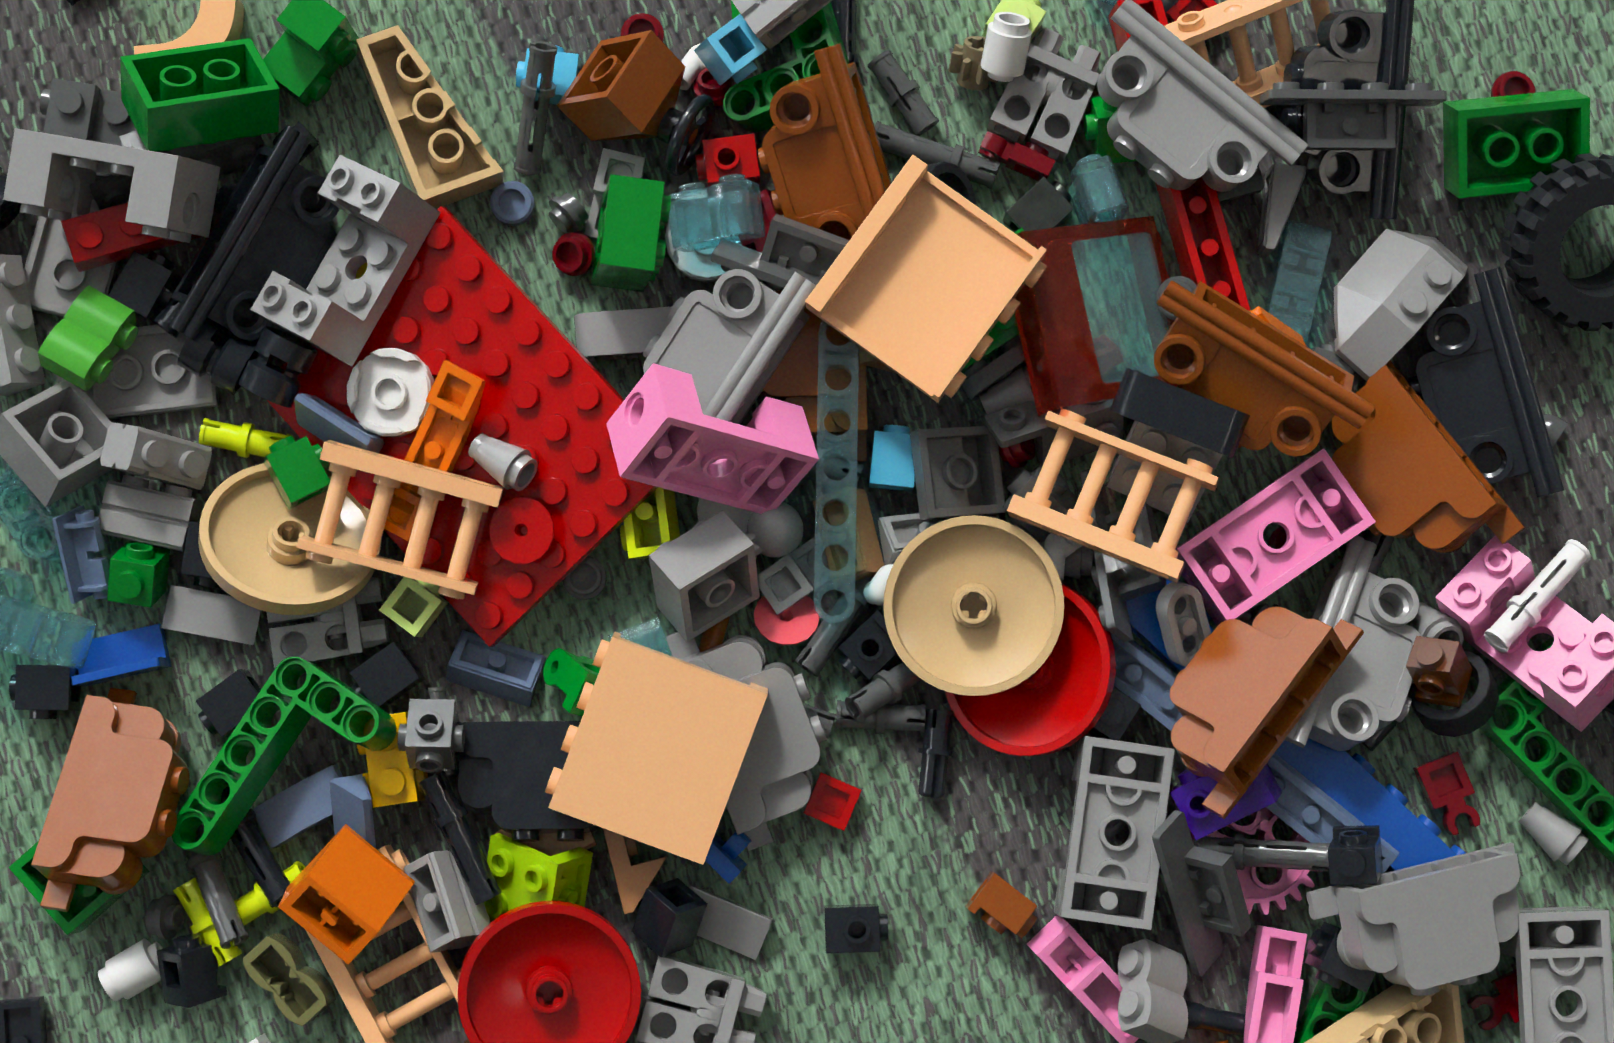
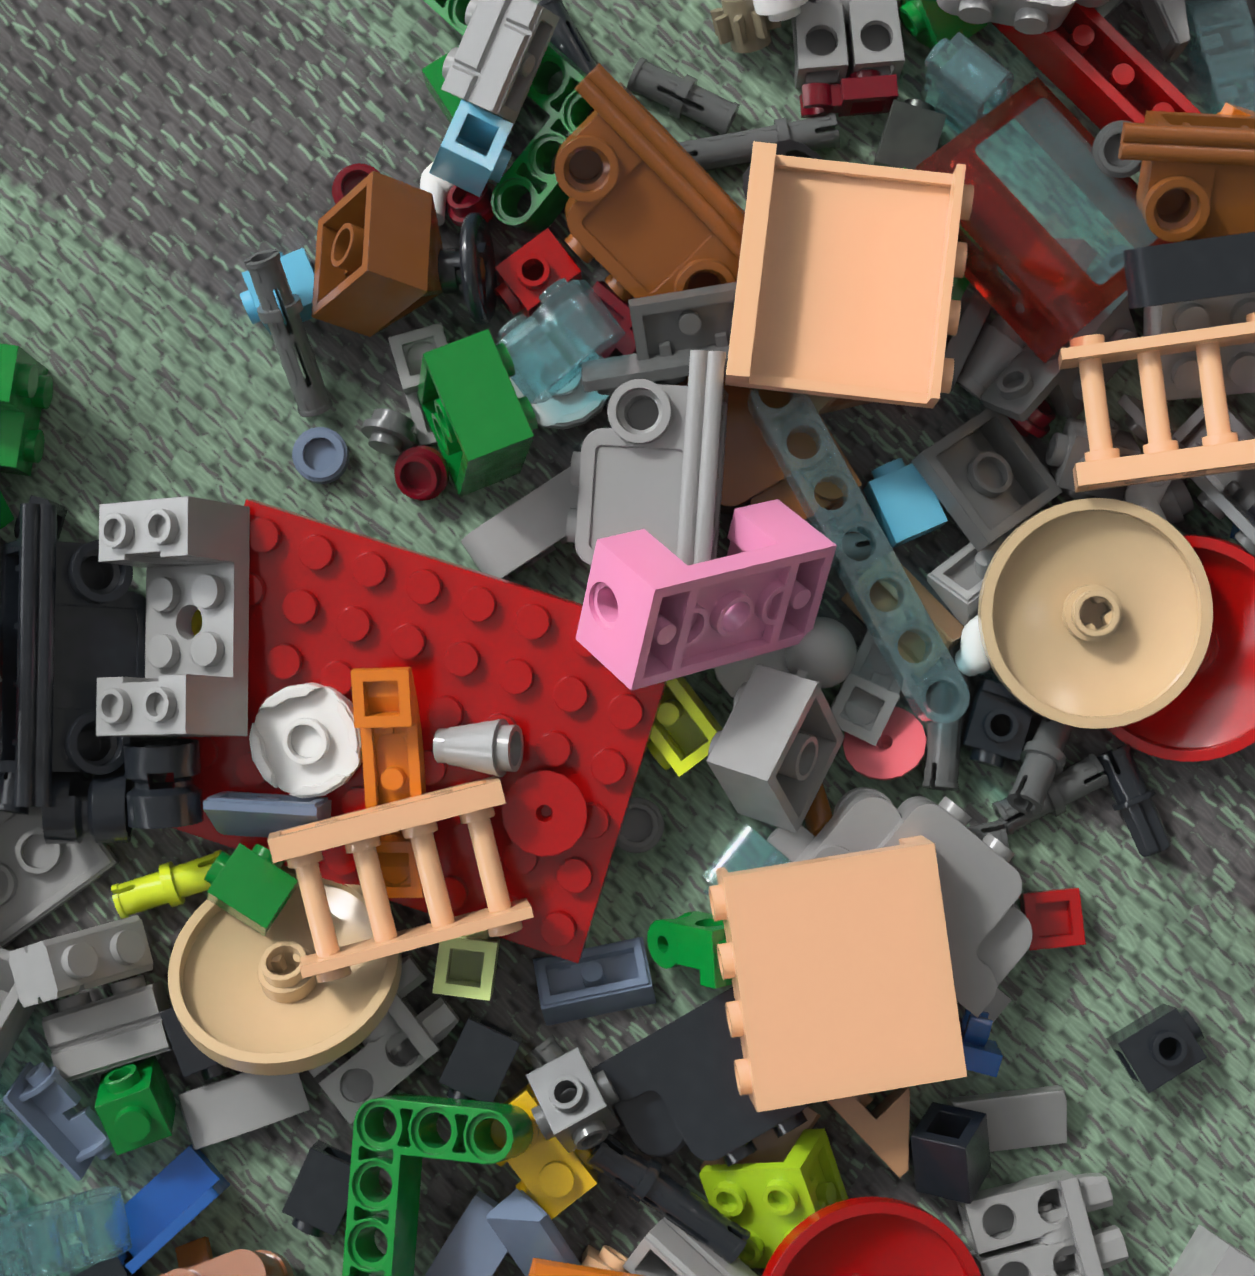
camera: 25 degrees left, 0 degrees up
(429, 134) = (187, 430): tan wedge -> none

